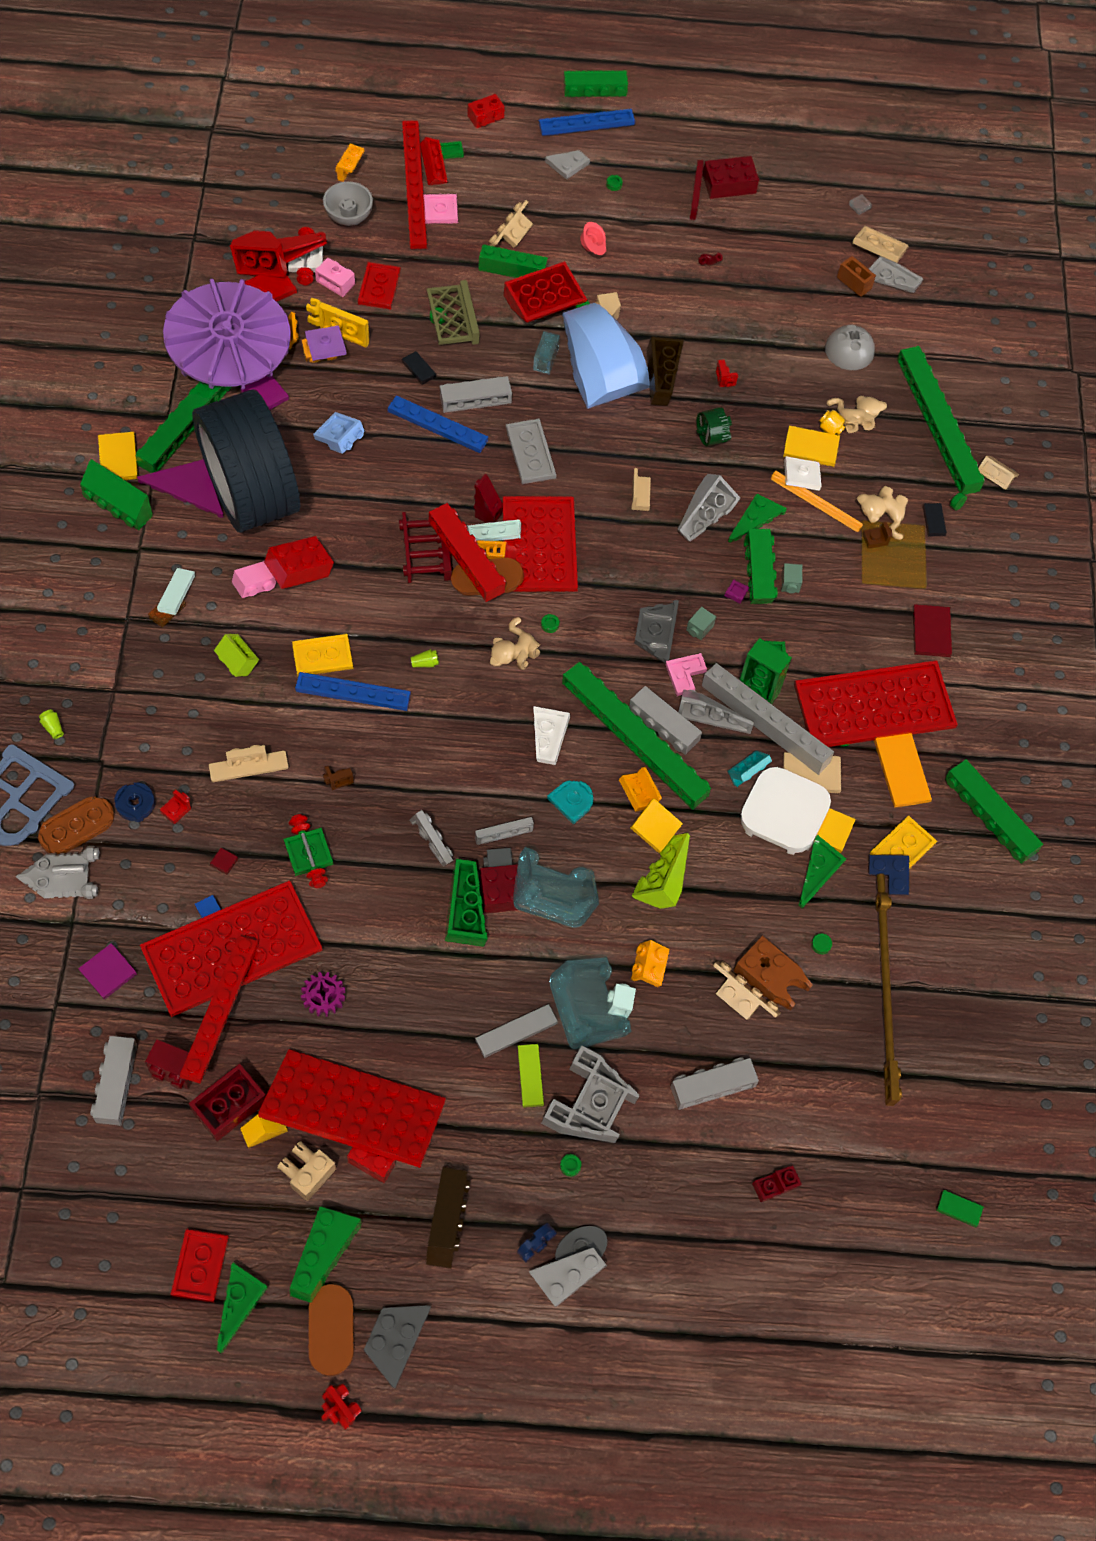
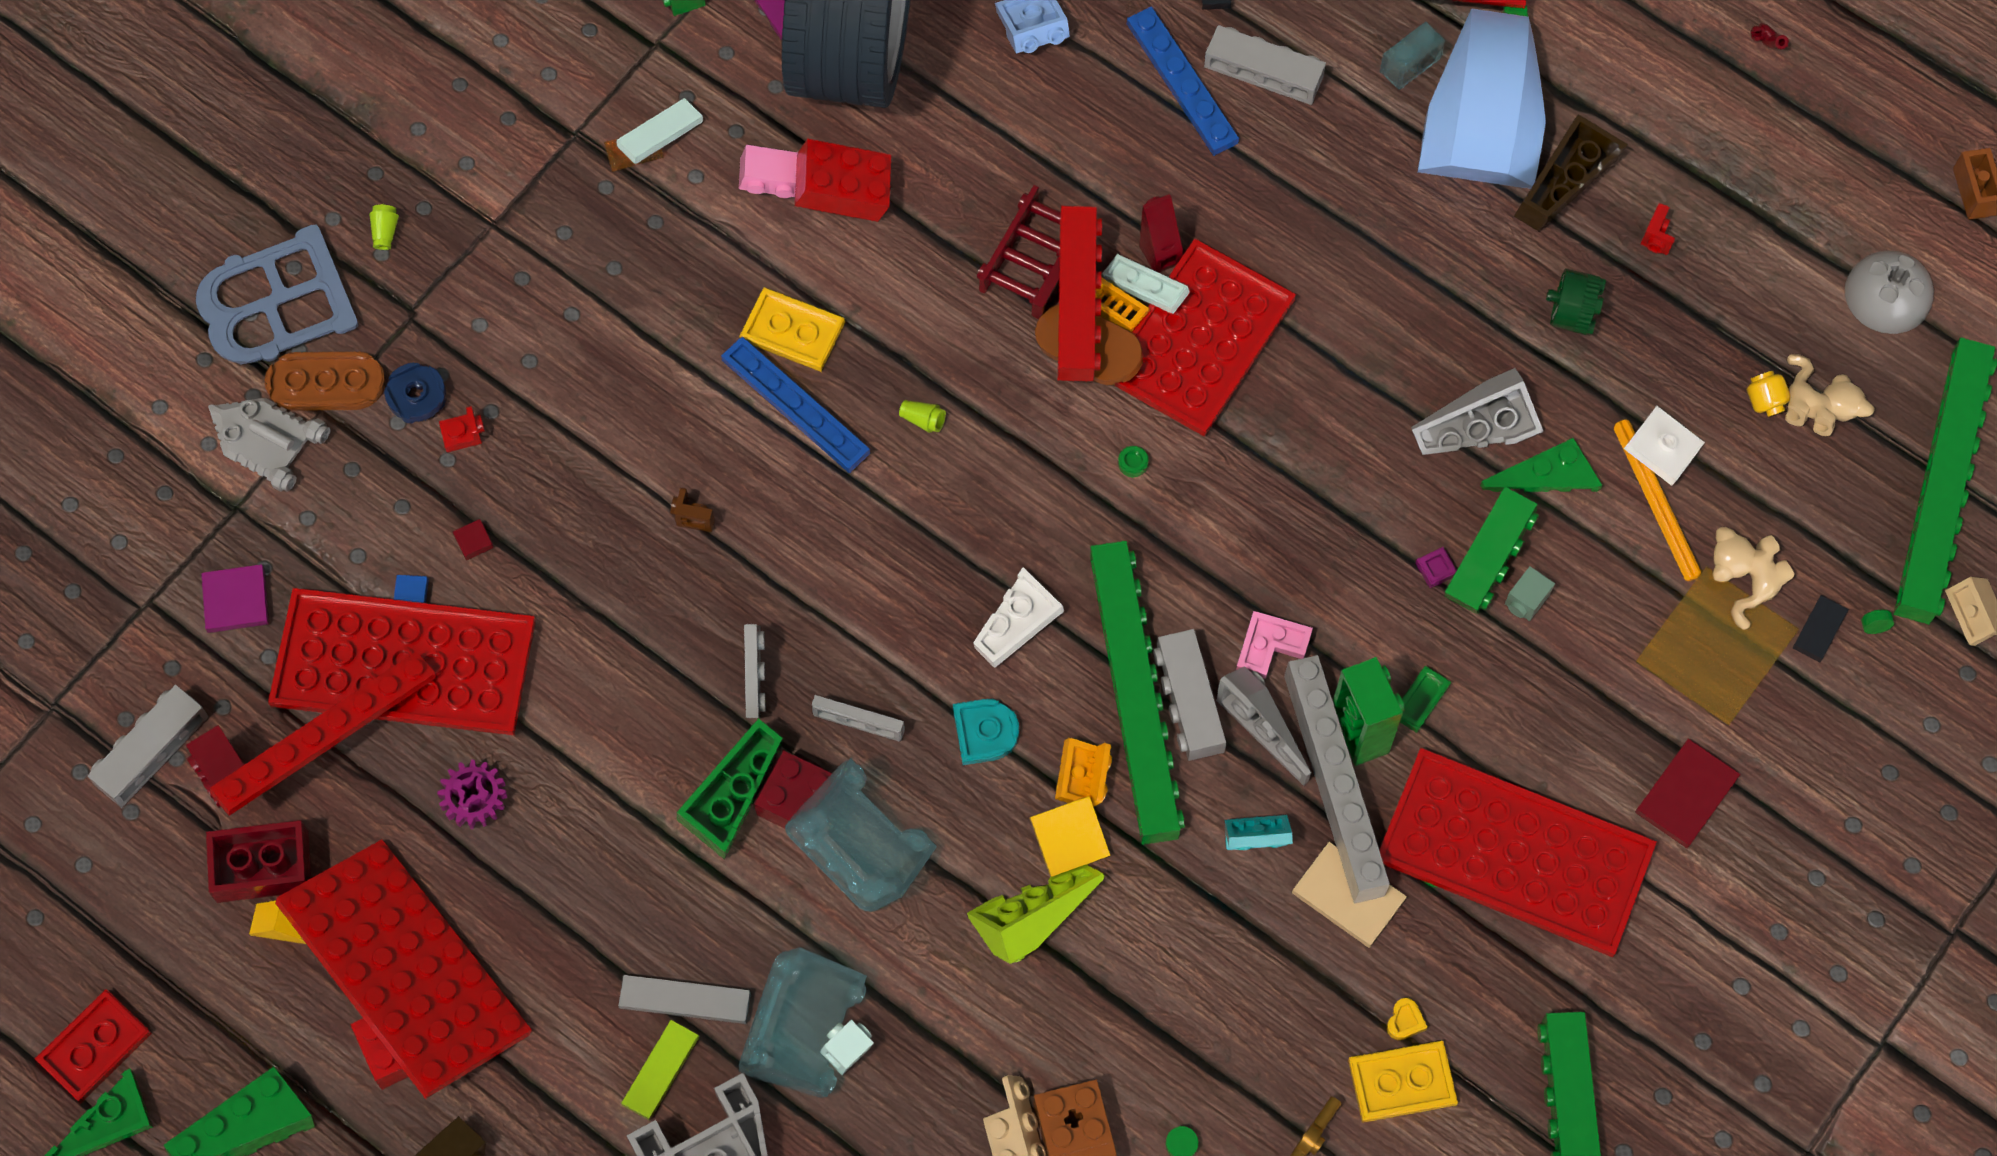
camera: 40 degrees right, 5 degrees up
(236, 655) = (674, 265): lime brick -> none
(247, 763) = (590, 424): tan bracket -> none
(308, 851) = (585, 591): green plate -> none
(314, 1173) = (299, 1020): tan brick -> none
(498, 857) = (821, 752): dark grey brick -> none
(505, 651) = (1039, 467): tan animal -> none
(530, 451) = (1286, 192): light grey tile -> none
(610, 303) = (1554, 35): tan slope -> none
(640, 492) = (1400, 340): tan panel -> none
(650, 963) = (924, 1021): light orange bracket -> none
(656, 629) = (1277, 556): dark grey wing -> none
(701, 623) = (1345, 585): sand green brick -> none
(785, 809) = (1267, 924): white tile -> none
(811, 445) = (1713, 411): yellow tile -> none
(822, 865) = (1263, 1035): green wing -> none
(836, 829) = (1316, 990): yellow tile -> none
(878, 536) = (1708, 605): reddish brown bracket -> none
(882, 816) = (1405, 1020): none -> yellow tile
(896, 868) = (1364, 1106): dark blue plate -> none
(902, 770) = (1485, 971): light orange tile -> none

